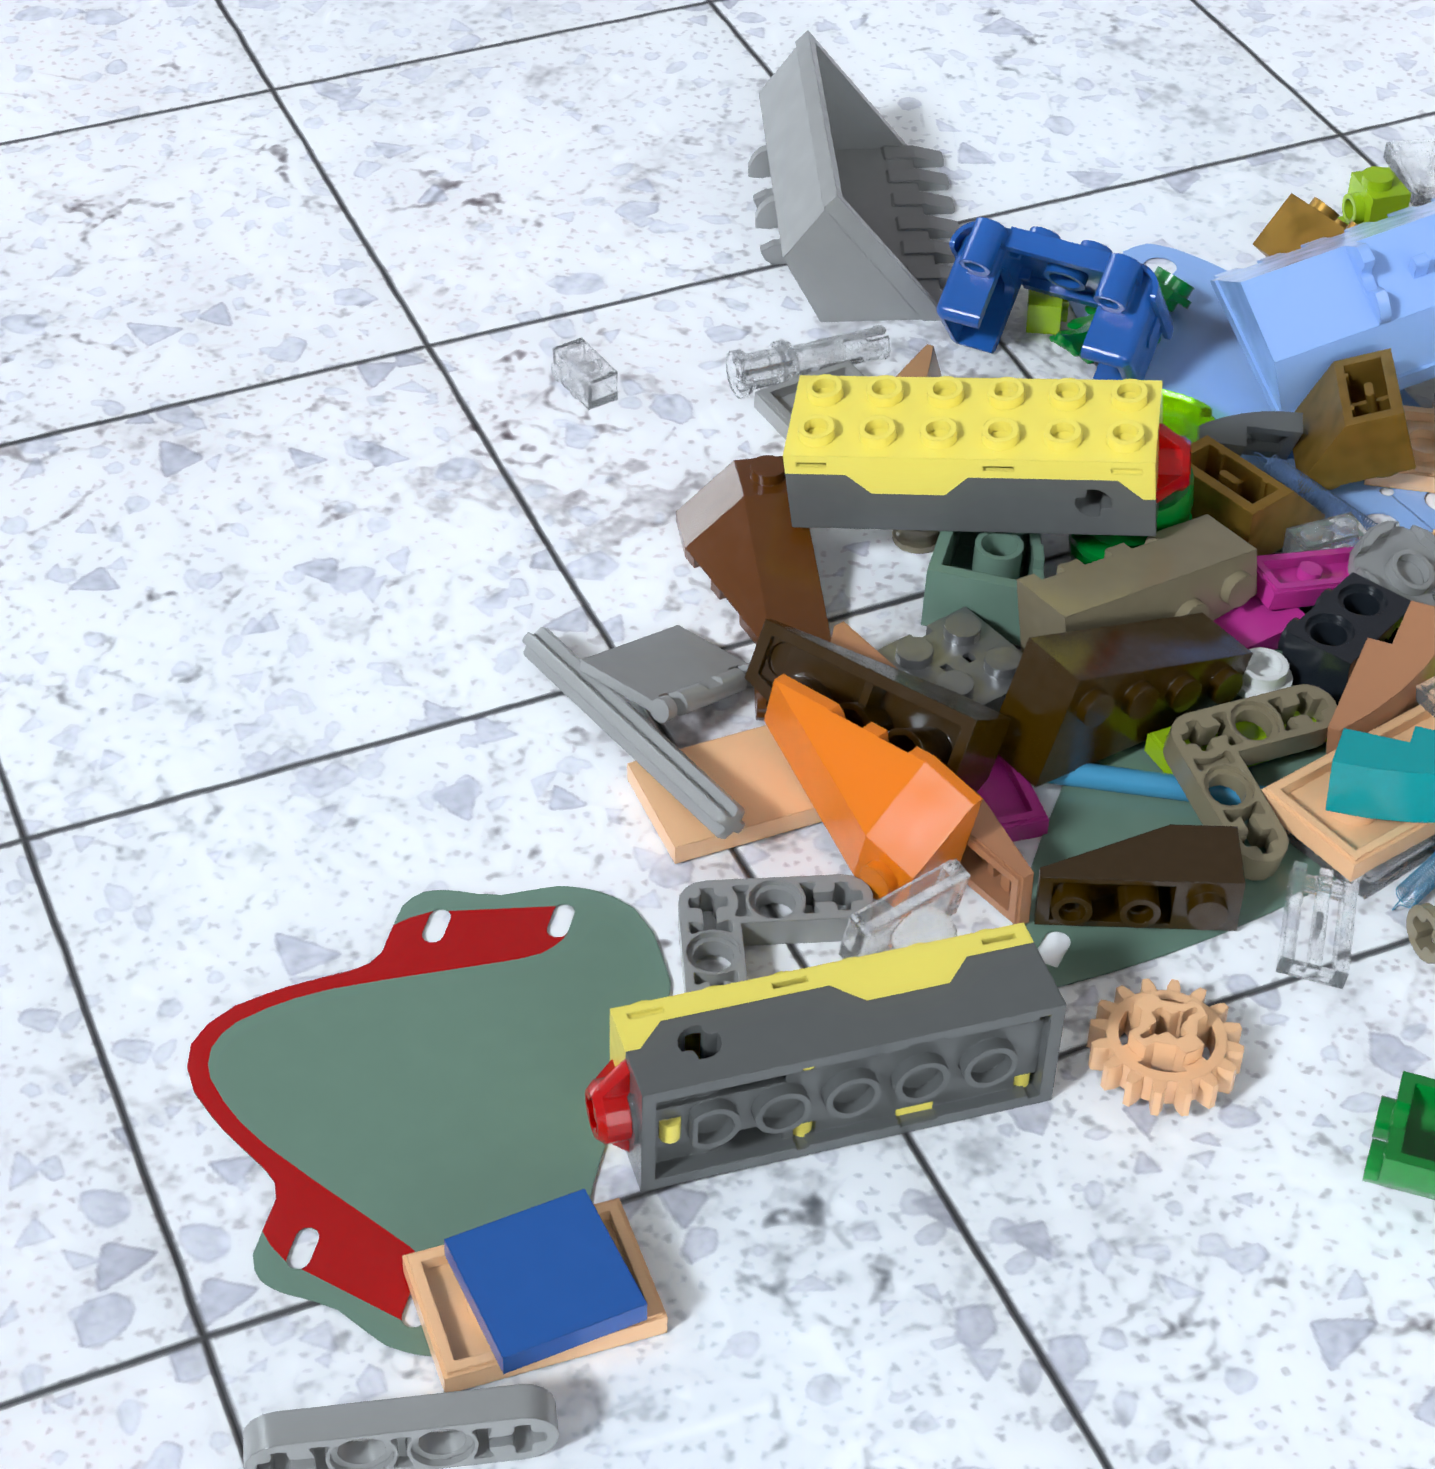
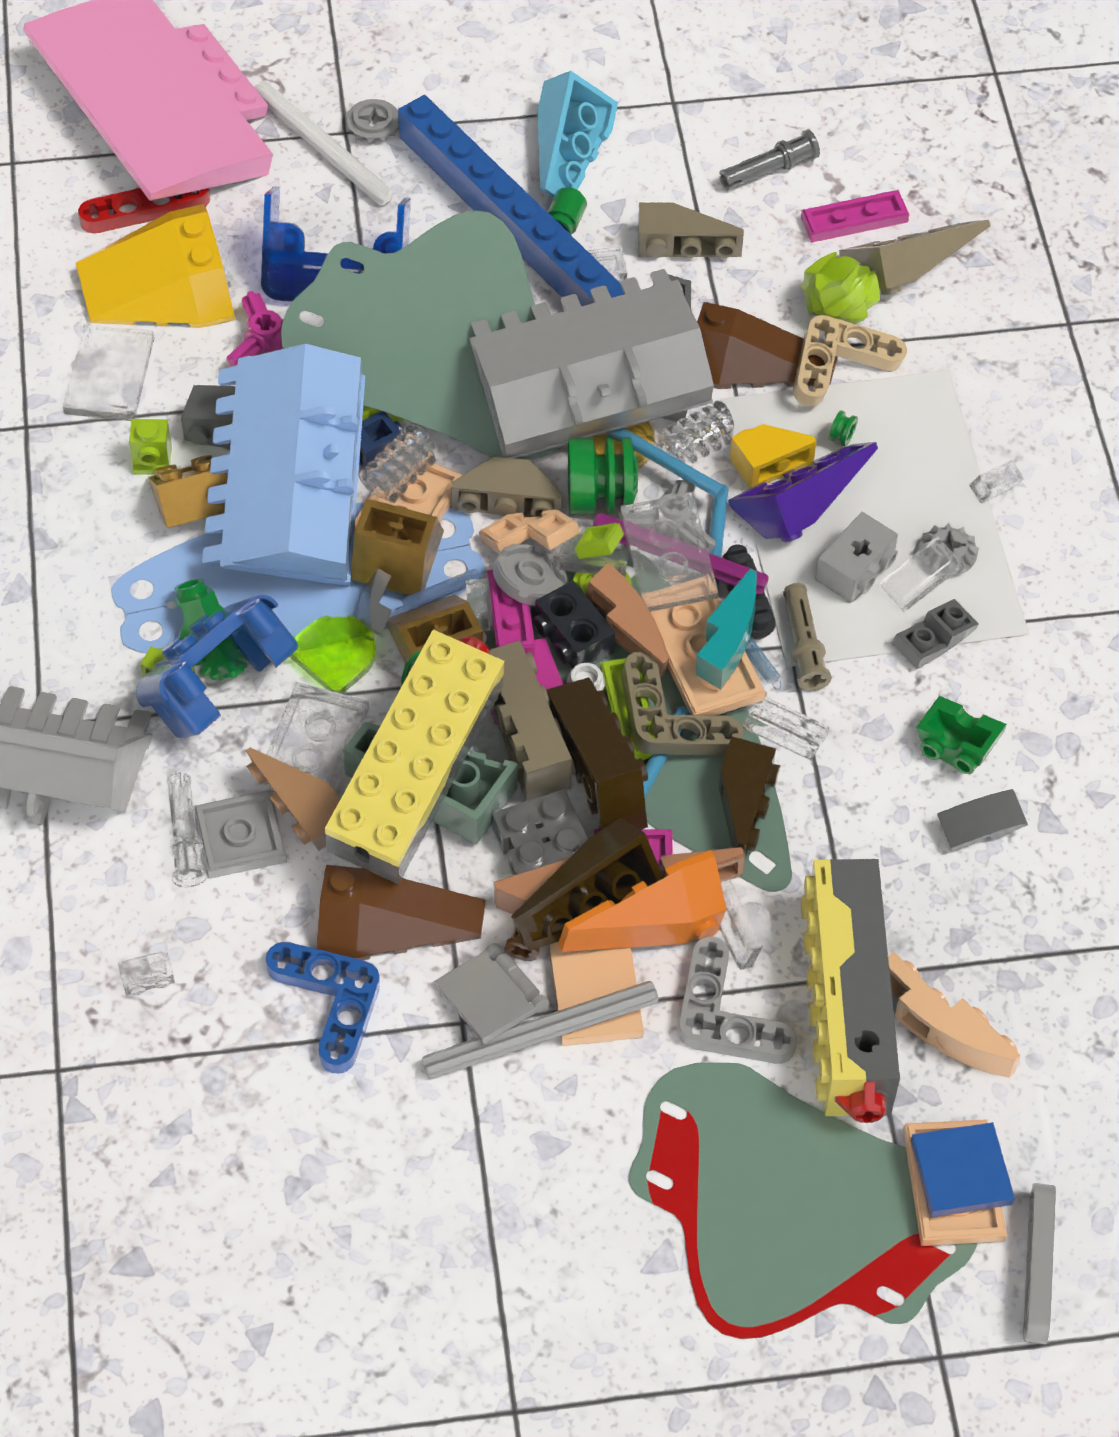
camera: 75 degrees left, 15 degrees up
(533, 552) = (346, 995): none -> blue beam
(833, 1218) = (955, 1030): none -> light nougat slope
(1165, 1047) = (866, 826): light nougat gear -> none
(1279, 1211) = (982, 818): none -> dark grey slope

